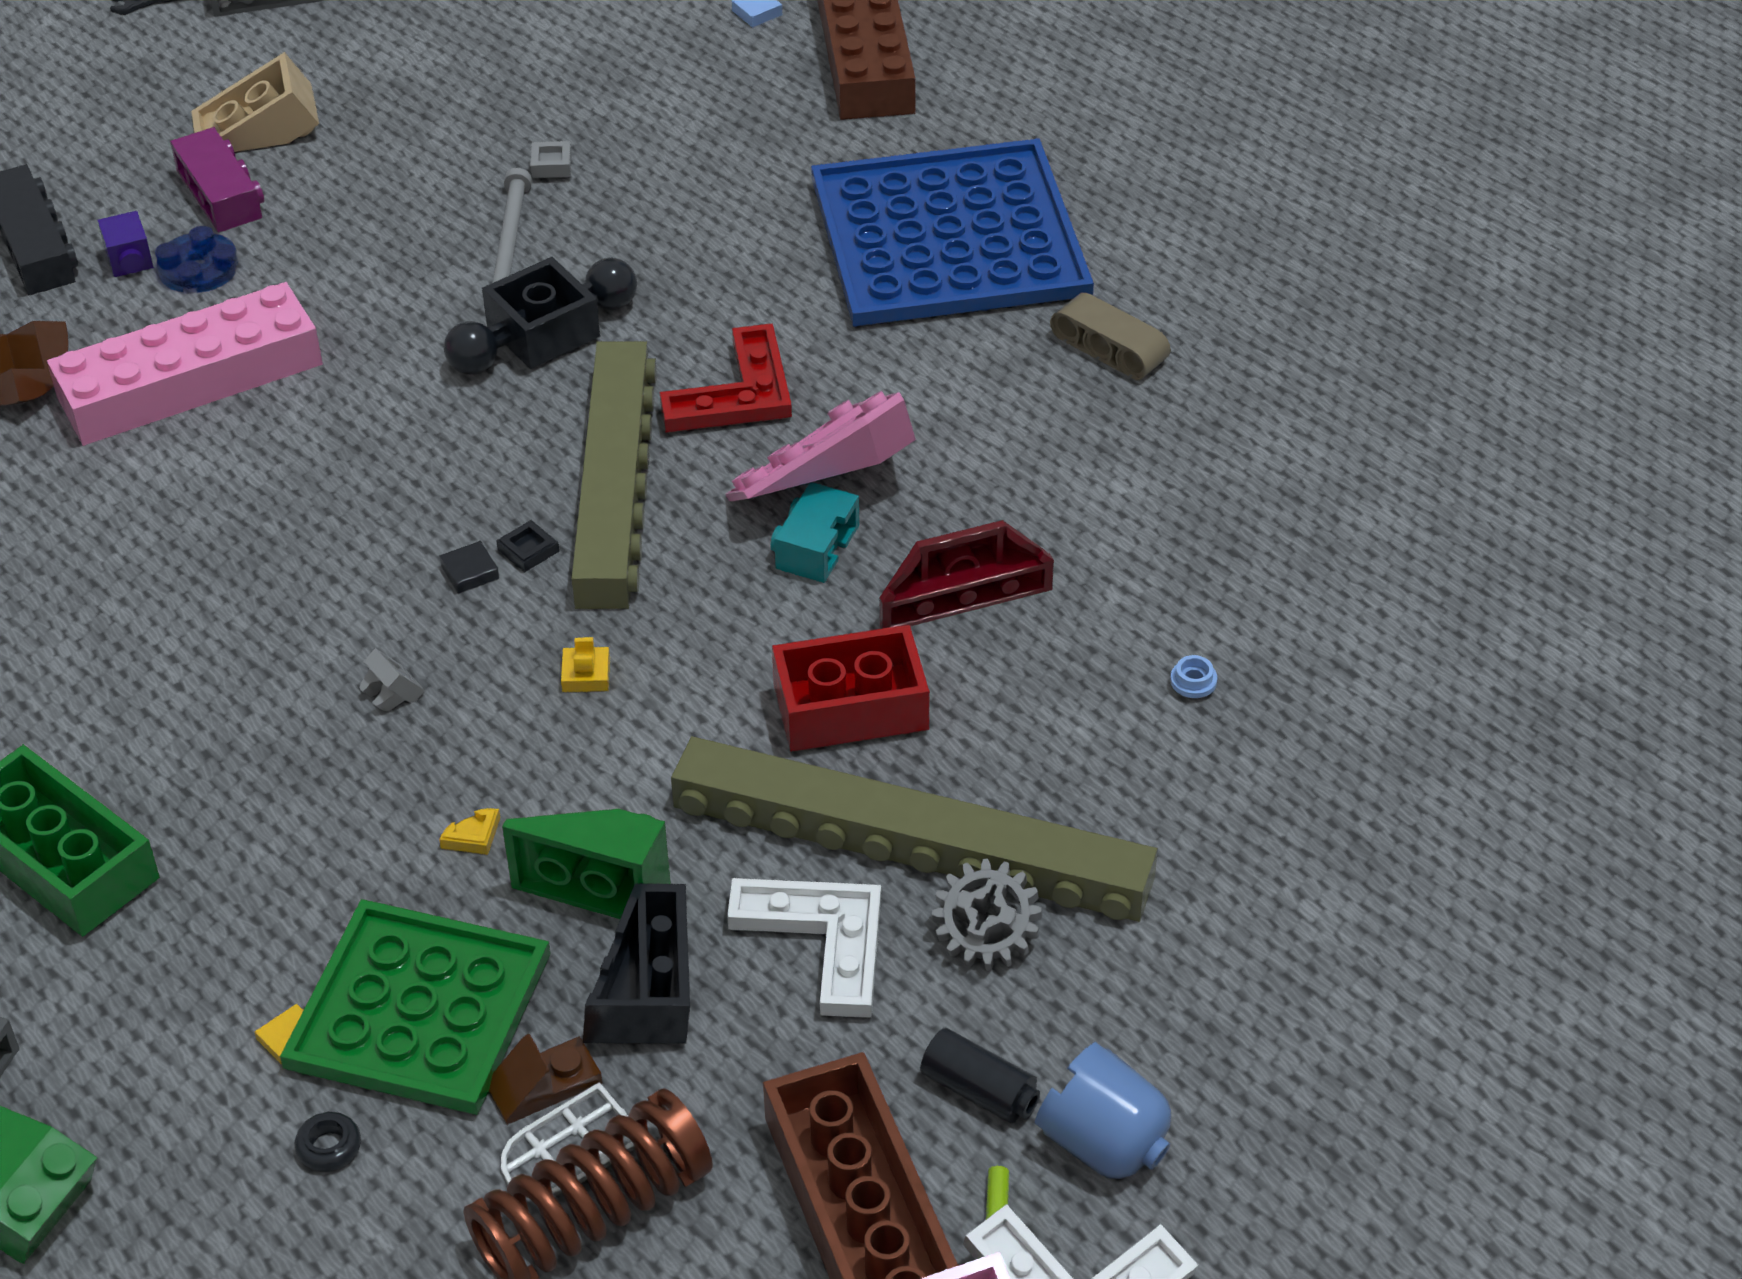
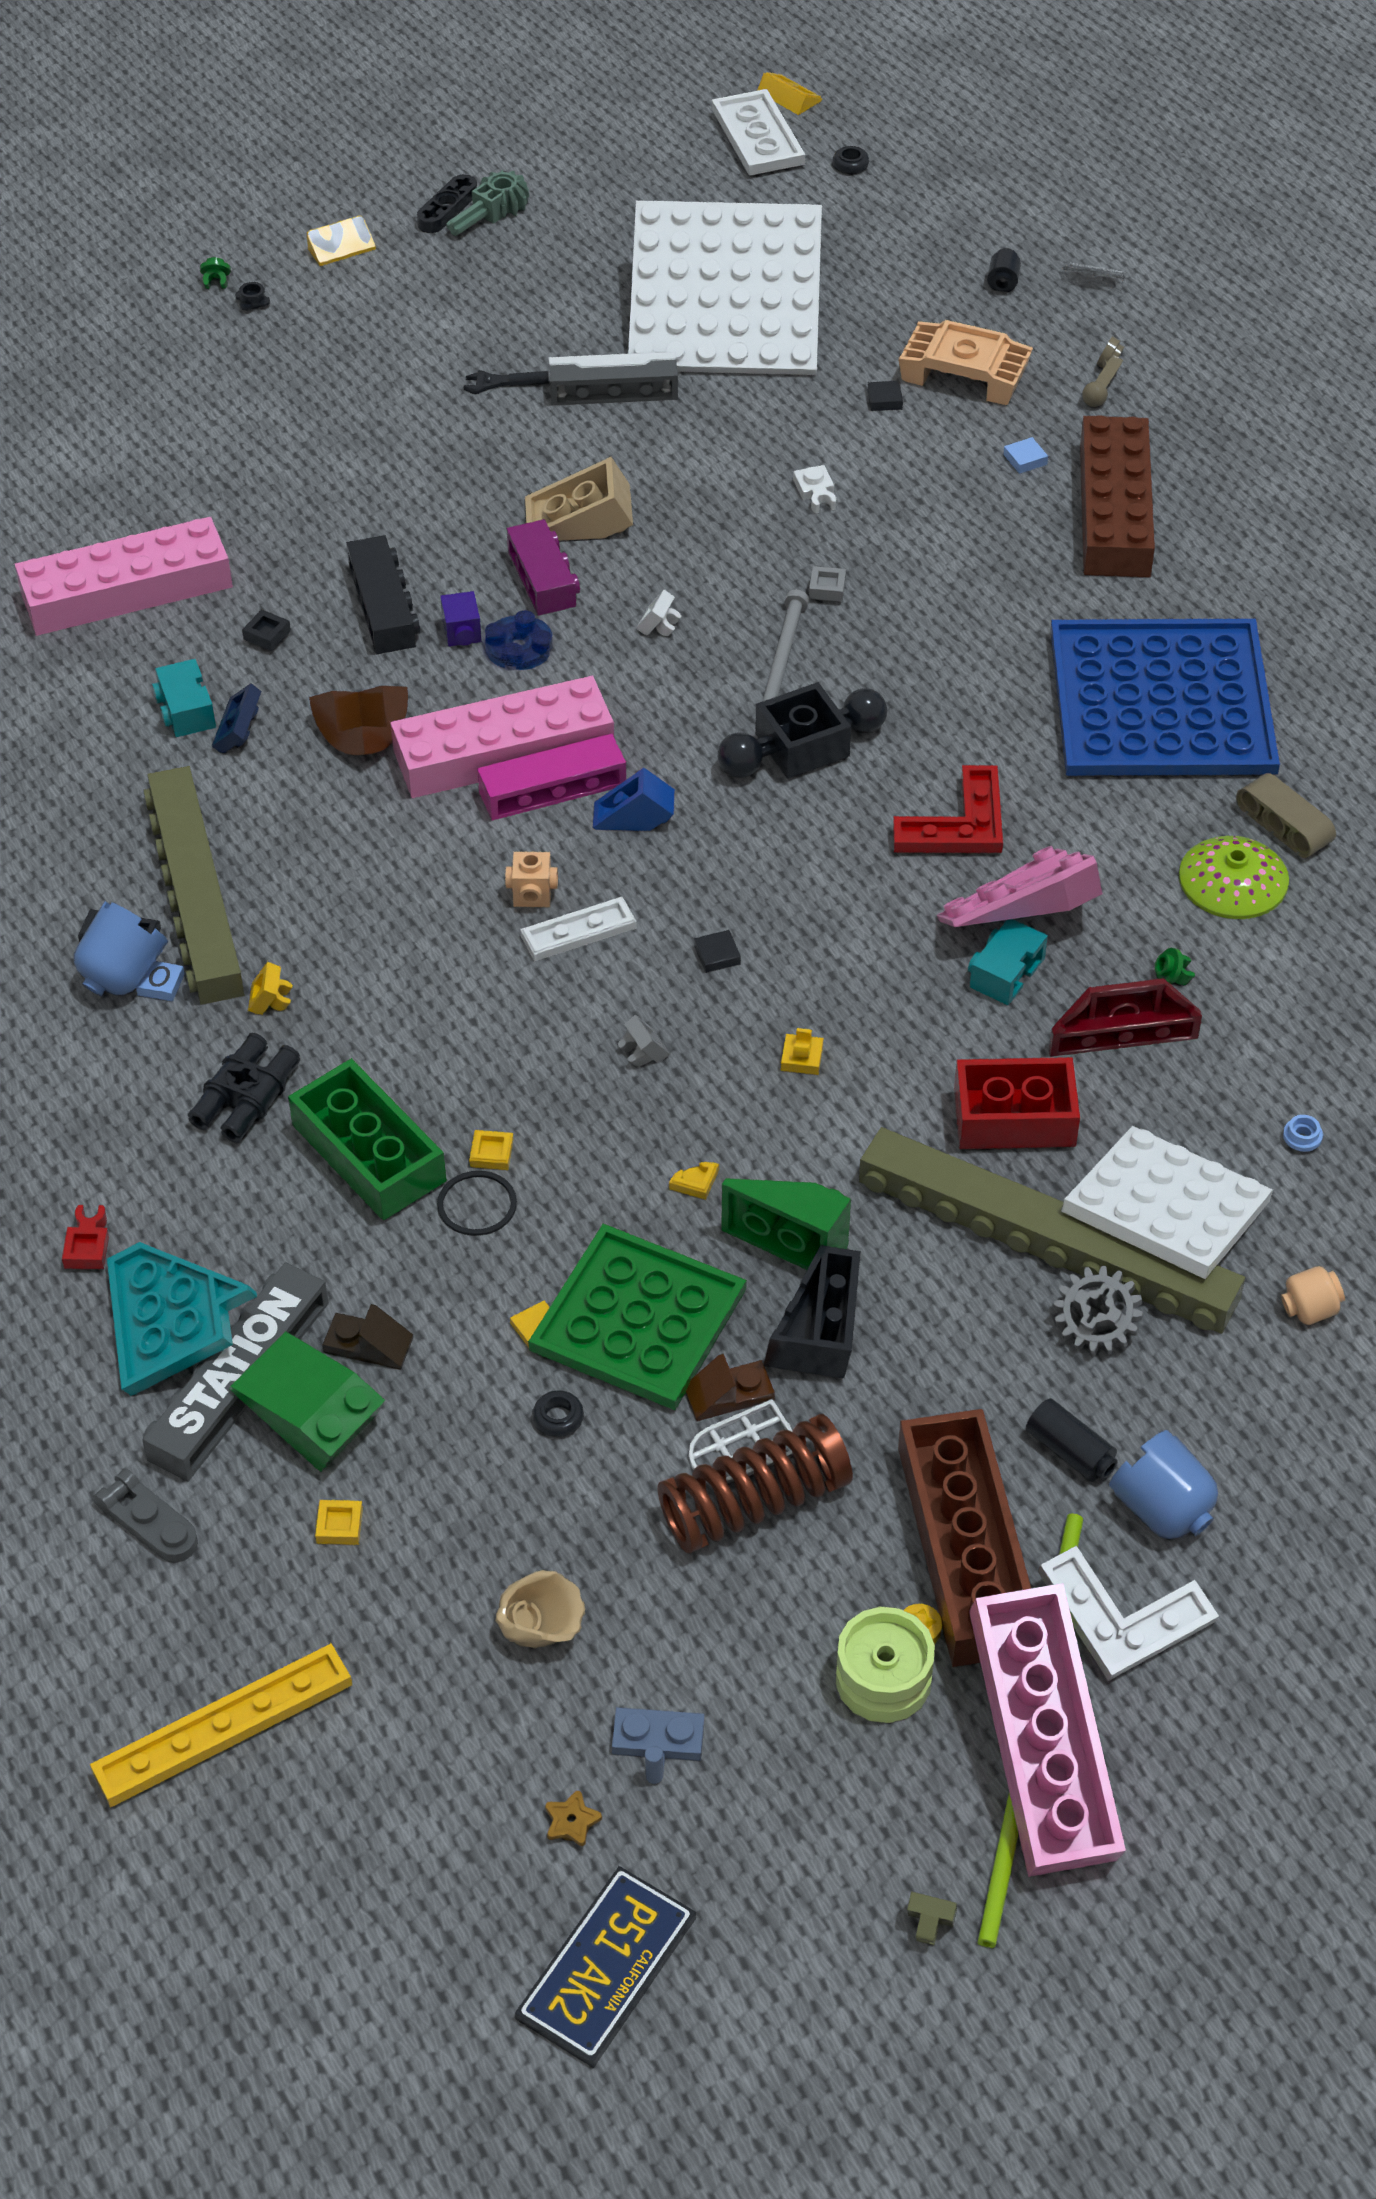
camera: 10 degrees right, 5 degrees up
(76, 1085) = (371, 1340): none -> dark brown slope
(208, 932) = (477, 1232): none -> black piece
(213, 832) = (491, 1150): none -> yellow tile
(231, 506) = (531, 879): none -> light nougat brick
(249, 399) = (551, 776): none -> dark pink brick
(297, 564) = (578, 928): none -> white tile
(352, 416) = (635, 804): none -> blue slope
(360, 214) = (659, 616): none -> white tile
(525, 62) = (816, 485): none -> white plate
(527, 546) = (767, 939): black tile -> none
(613, 477) = (845, 884): olive brick -> none
(840, 910) = (982, 1289): white plate -> none
(1012, 511) = (1172, 966): none -> green plate
(1049, 775) = (1167, 1201): none -> white plate
(1062, 410) = (1234, 877): none -> lime dish
(1241, 859) = (1313, 1295): none -> light nougat head

